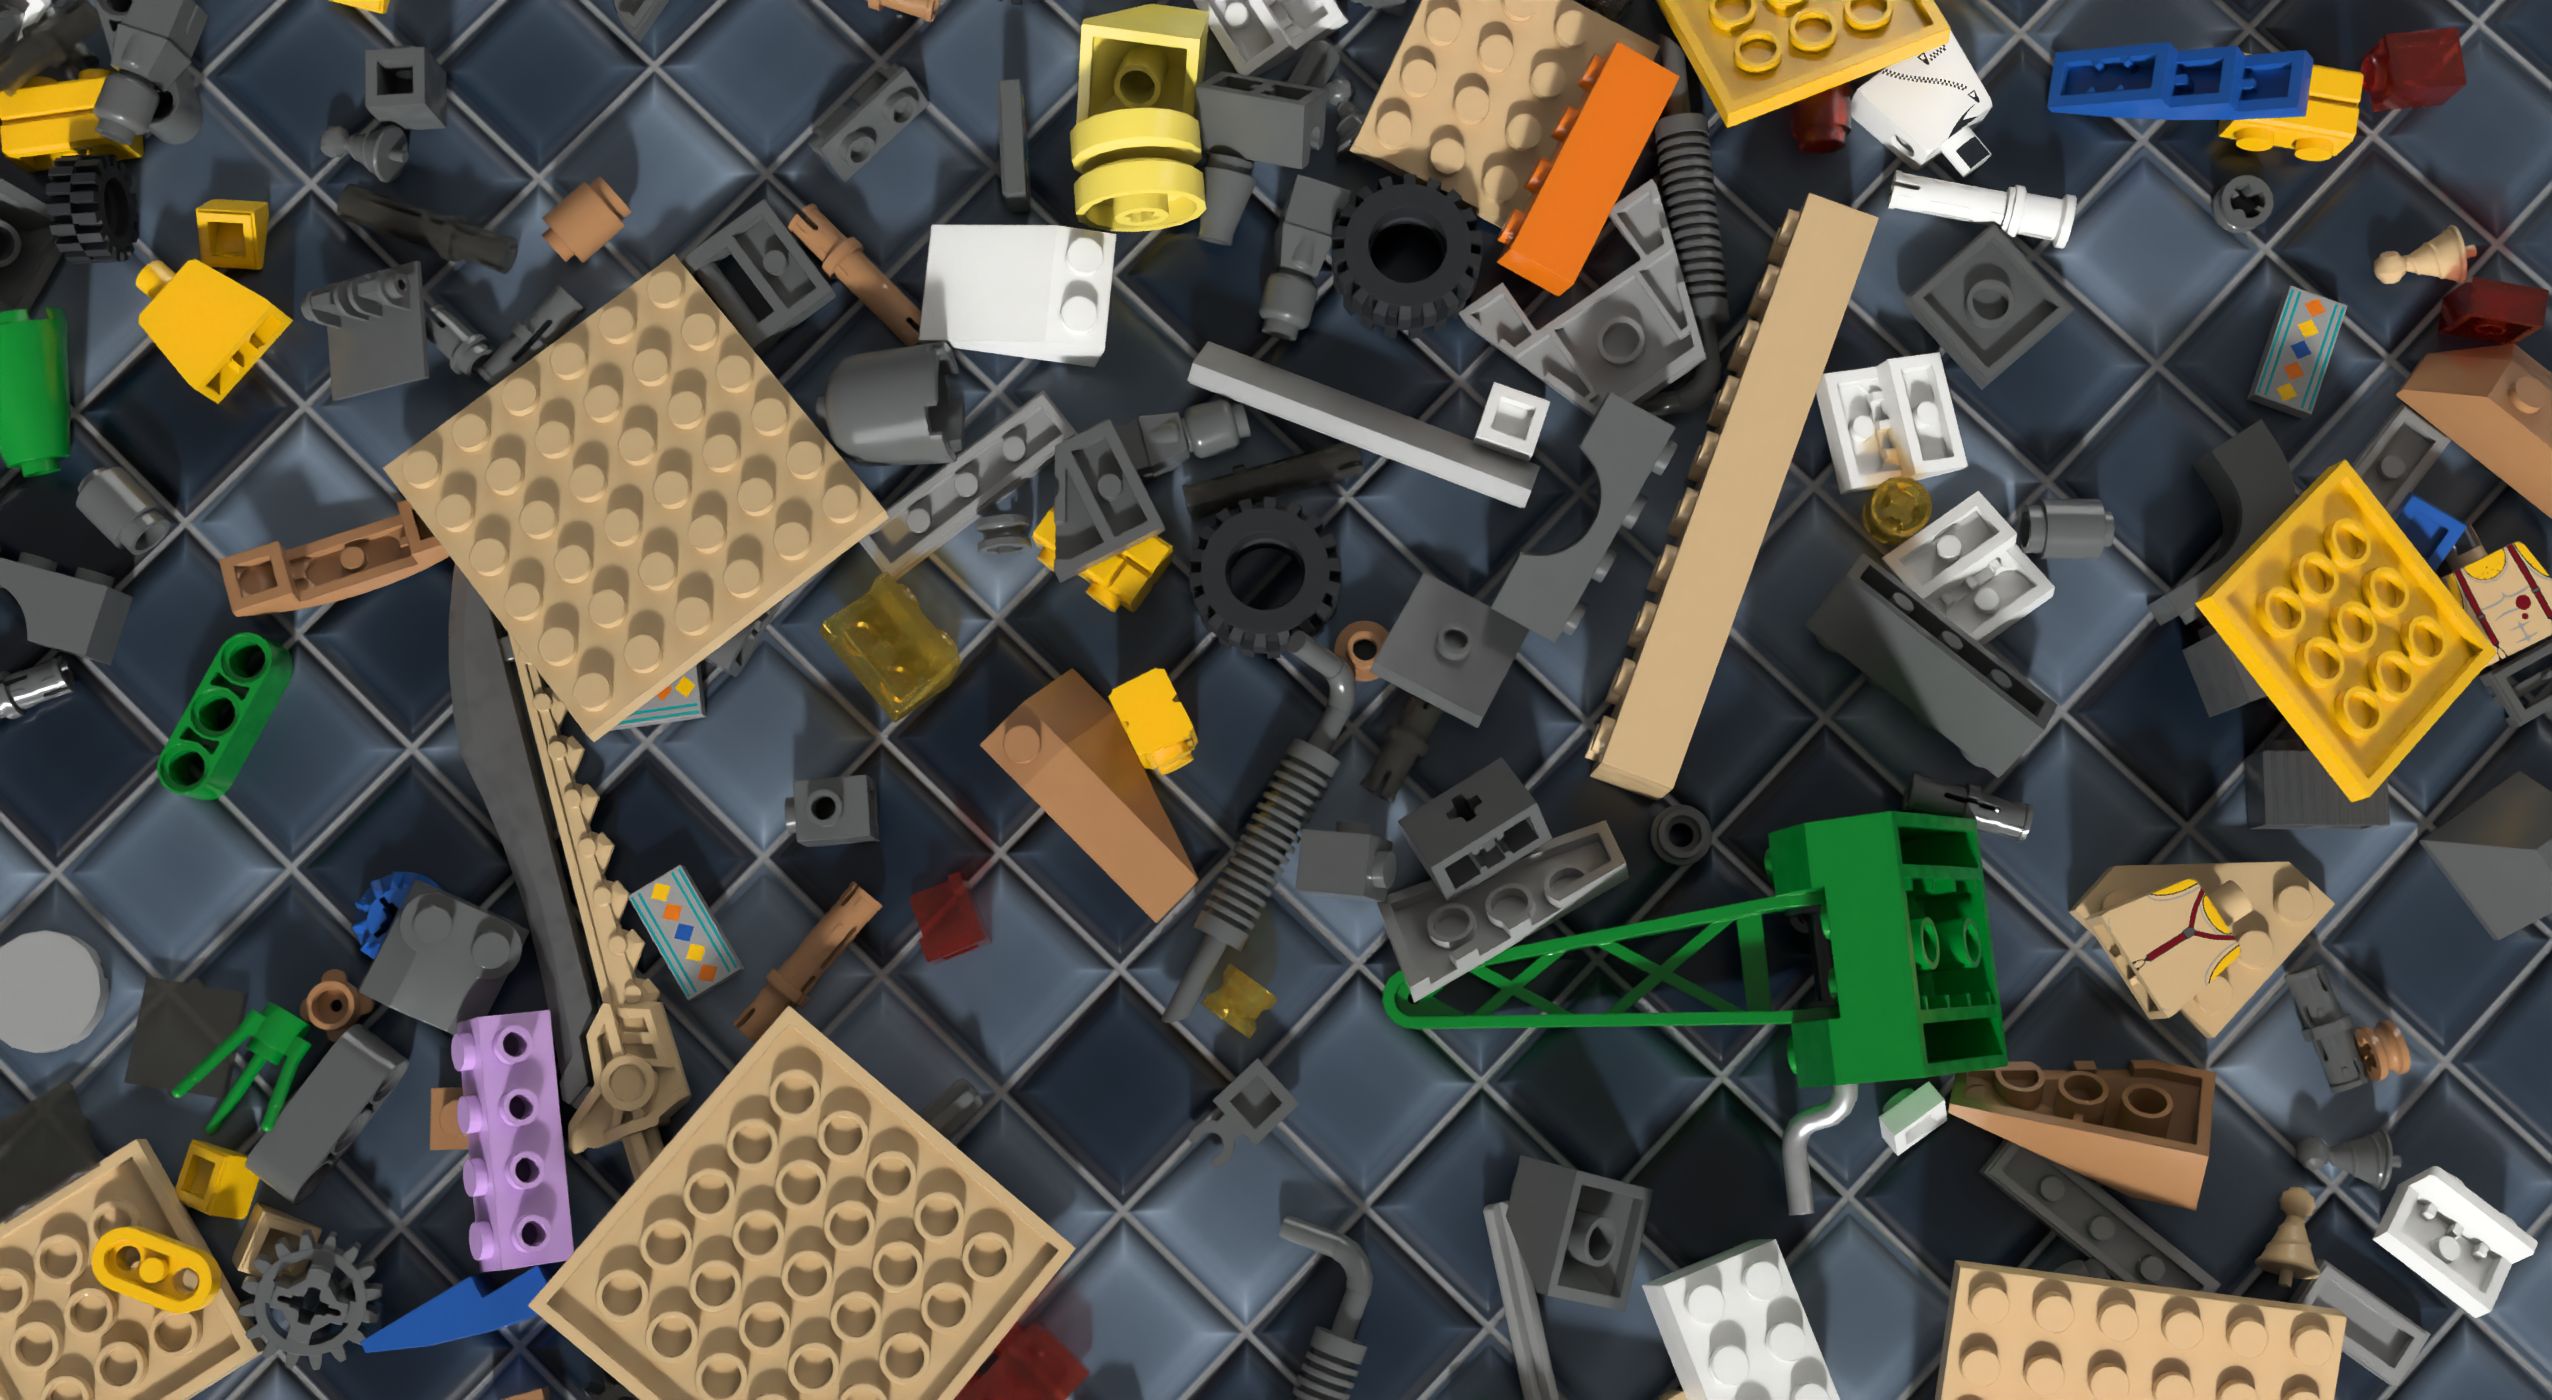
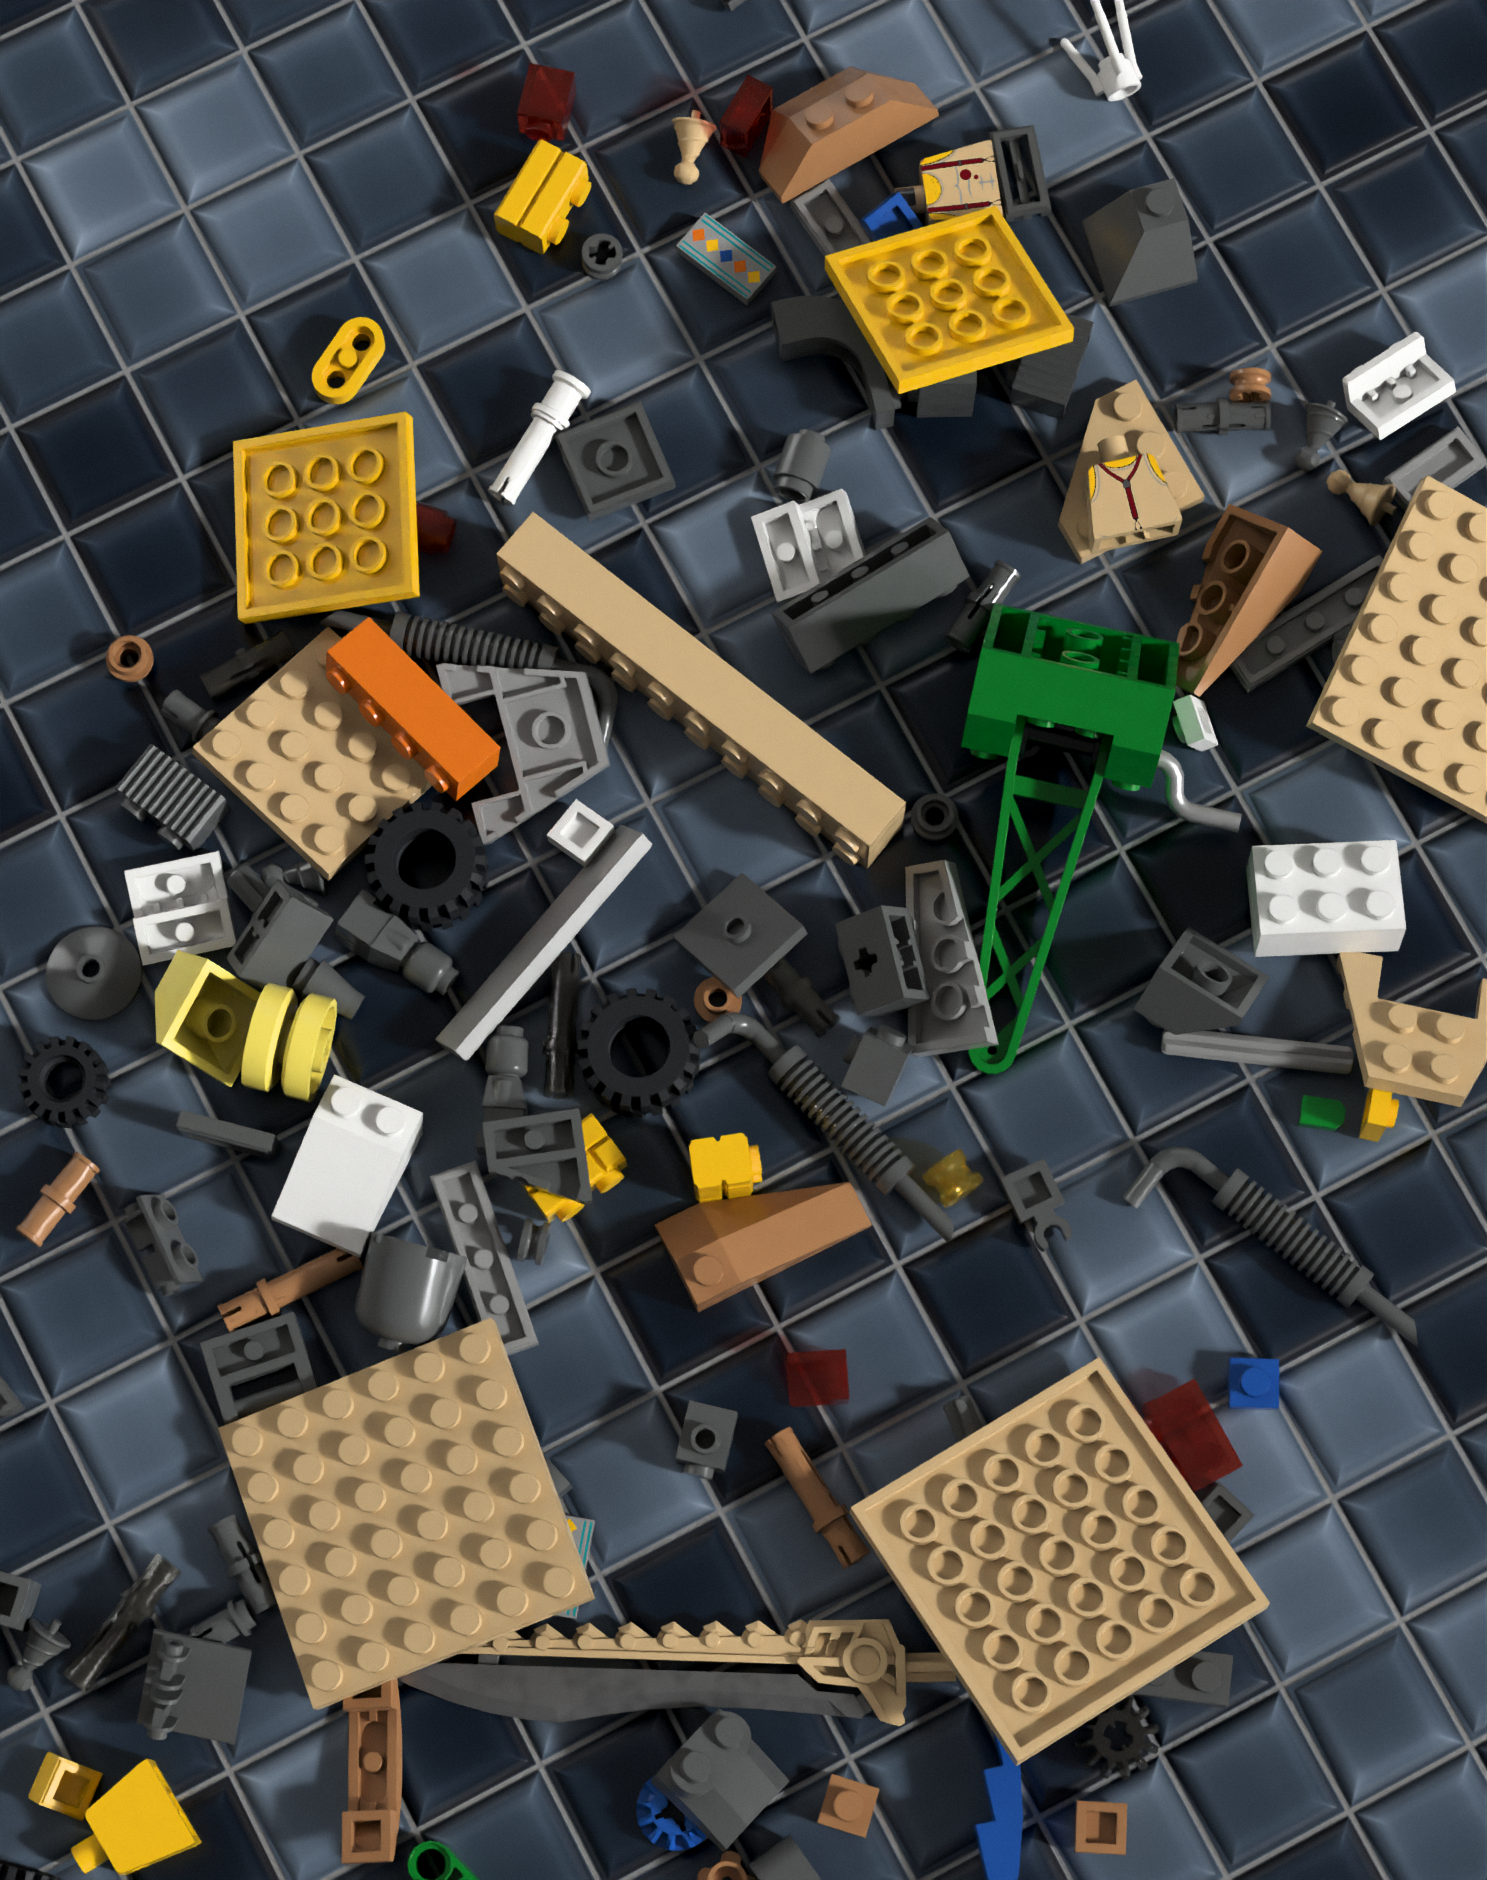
camera: 75 degrees left, 5 degrees down
(513, 1141) = (881, 1762): lavender brick -> none
(585, 220) = (164, 1491): medium nougat brick -> none
(686, 933) = (761, 1586): light grey tile -> none
(892, 647) = (593, 1353): clear yellow bracket -> none
(1547, 587) = (717, 846): dark grey arch -> none
(1890, 422) = (679, 560): white slope -> none
(1907, 502) = (745, 568): clear yellow wheel -> none
(1927, 109) = (452, 450): white torso -> none
(2180, 85) = (500, 268): blue slope -> none

